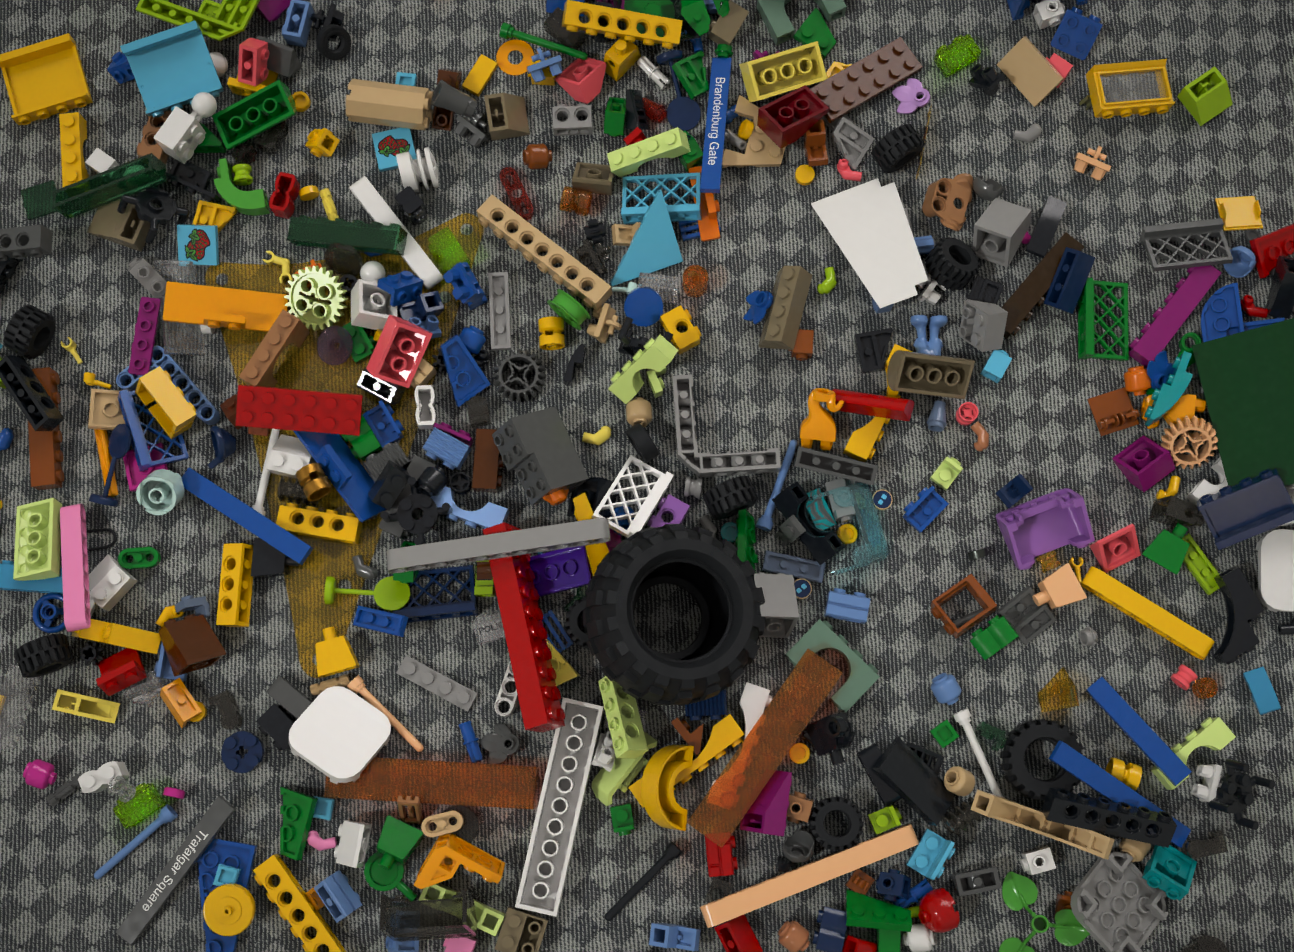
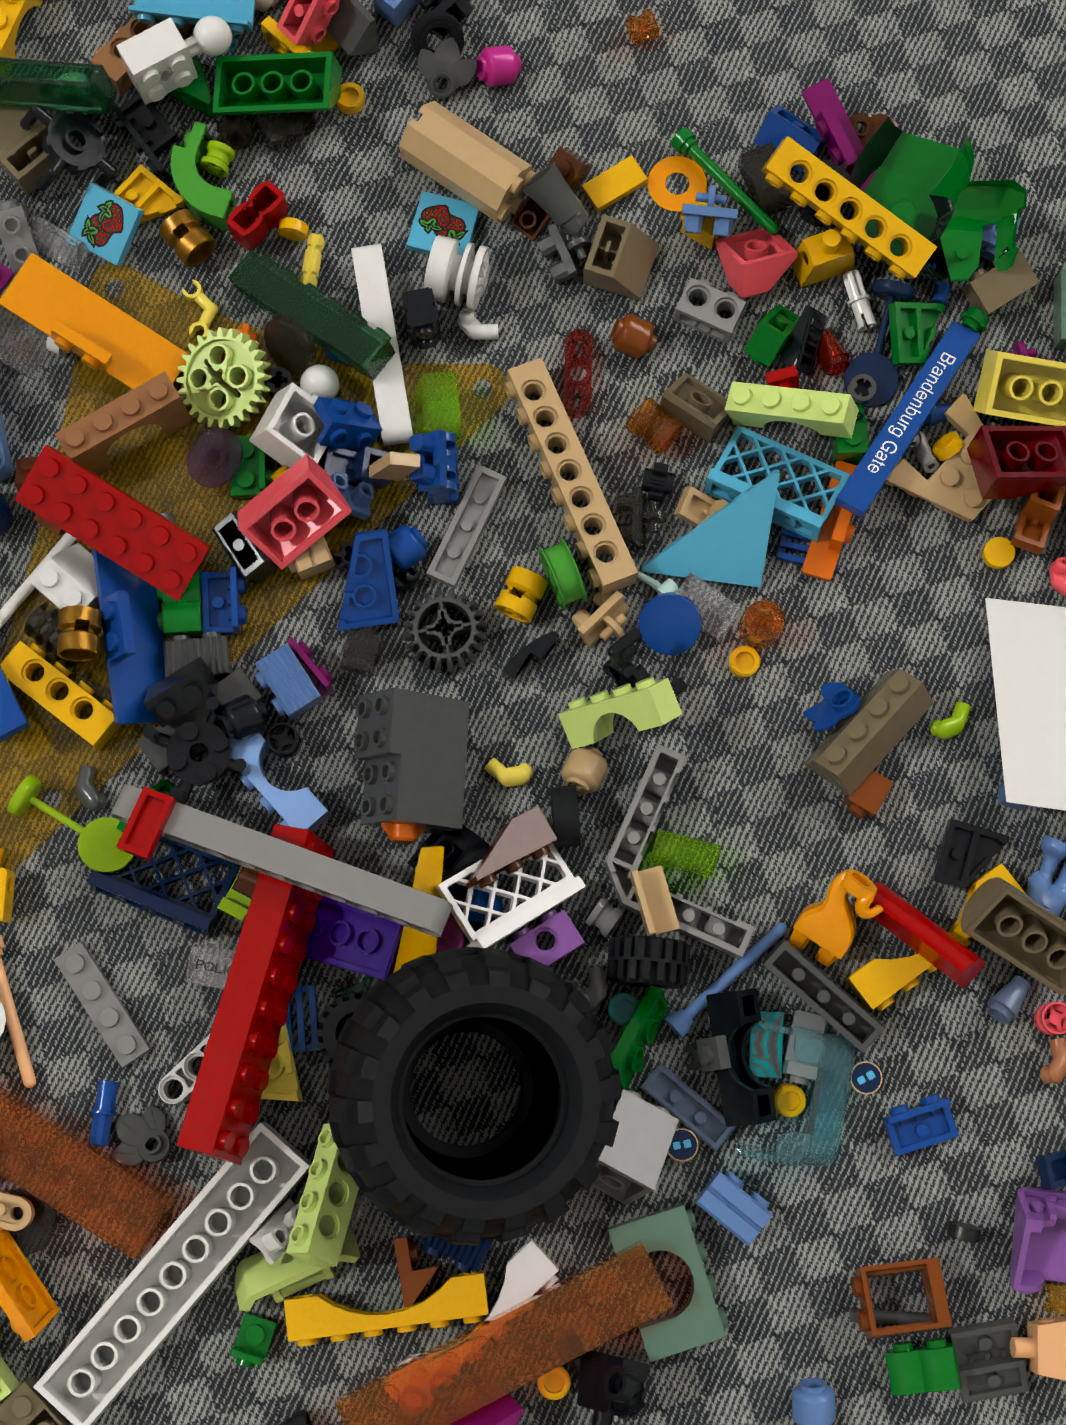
camera: 25 degrees right, 0 degrees up
(100, 161) = (37, 44): white brick -> none
(247, 227) = (185, 235): none -> pearl gold wheel
(322, 142) = (347, 168): yellow brick -> none
(345, 54) = (445, 63): none -> dark grey plate
(377, 40) = (498, 66): none -> dark pink head
(380, 621) = (69, 876): blue tile -> none
(406, 79) = (510, 139): medium azure plate -> none
(412, 564) = (146, 823): none -> red tile
(425, 410) = (295, 600): white brick -> none
(443, 296) = (394, 466): none -> tan tile
(444, 198) = (474, 329): none -> white arm
(486, 463) = (333, 730): reddish brown brick -> none
(623, 468) = (517, 841): none -> slope
(656, 383) = (630, 741): yellowish green bracket -> none
(658, 784) = (329, 1319): yellow brick -> none
(676, 318) = (698, 700): yellow brick -> none
(679, 115) = (870, 392): none -> dark grey bush
(696, 307) = (744, 662): none -> yellow tile
(716, 462) = (654, 901): none -> tan panel
(718, 430) = (684, 854): none -> clear neon green brick
(946, 472) = (980, 1088): yellowish green bracket -> none

